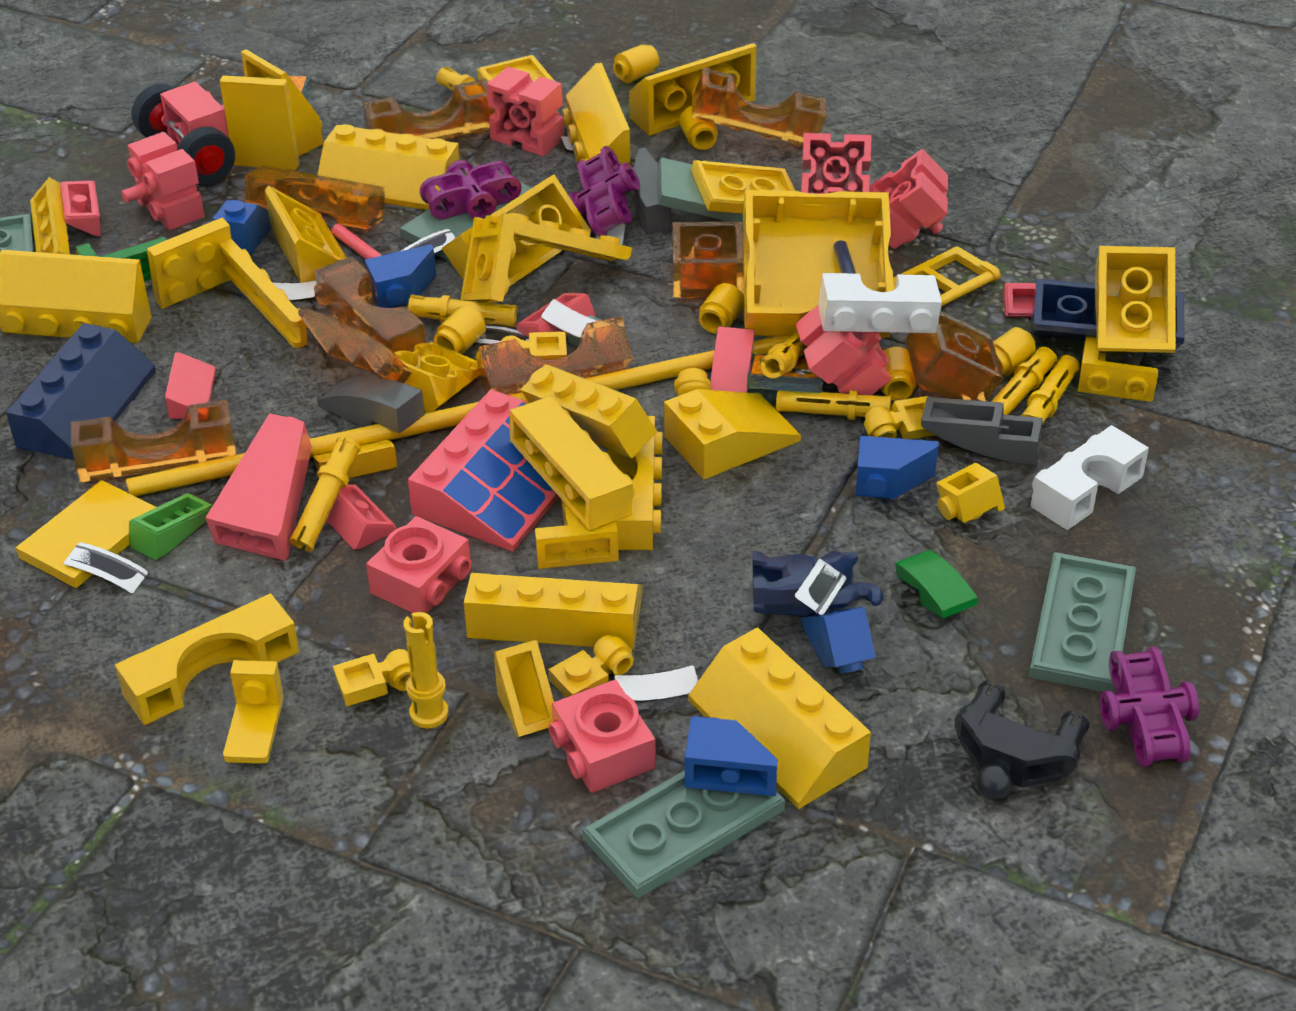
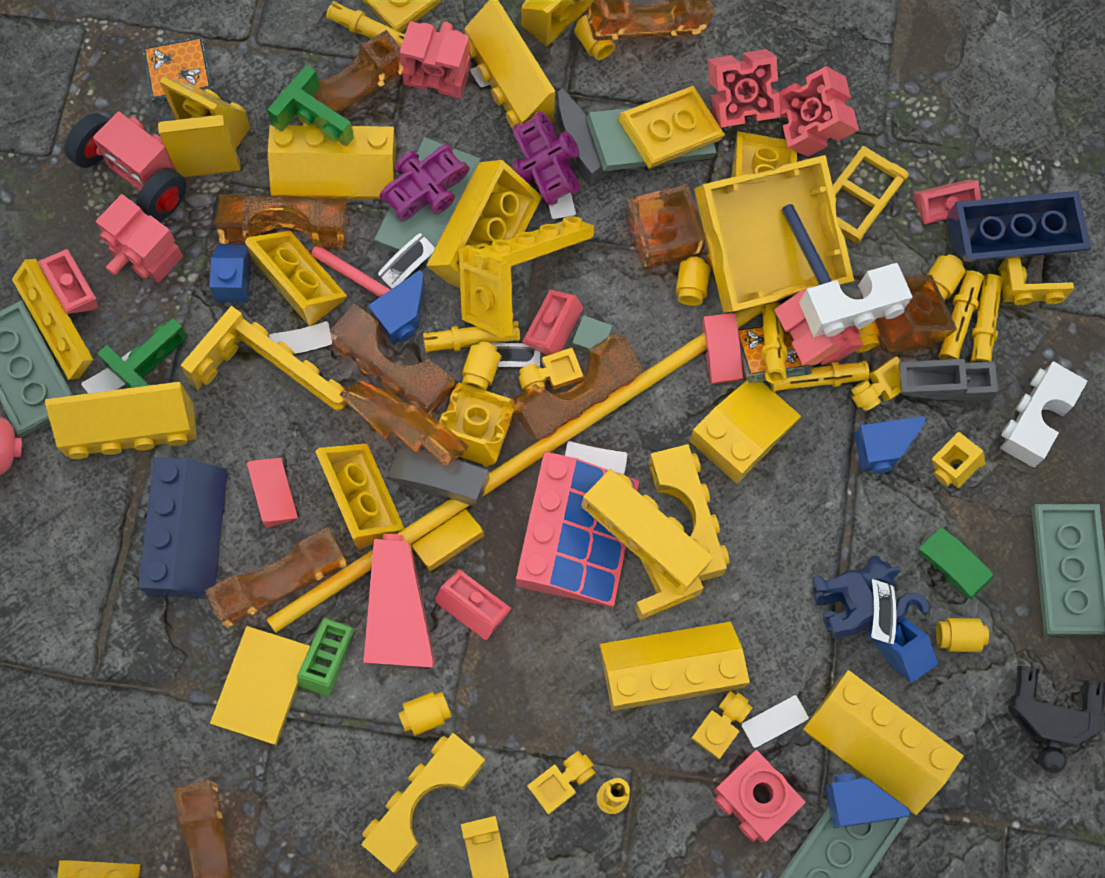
camera: 20 degrees left, 30 degrees up
(107, 565) = (293, 721): sticker -> none
(250, 582) = (424, 713): none -> yellow brick
(277, 388) = (360, 492): none -> yellow slope
(331, 480) = (450, 591): yellow pin -> none
(379, 103) = (299, 101): none -> green bracket
(418, 565) = (562, 675): coral brick -> none
(524, 687) = (687, 771): yellow slope -> none
(565, 318) = (576, 332): white sticker -> none
(607, 415) = (638, 463): yellow brick -> none
(690, 380) = (699, 387): yellow plate -> none
(918, 643) = (962, 634): none -> yellow brick
(1135, 299) = (1050, 226): yellow slope -> none

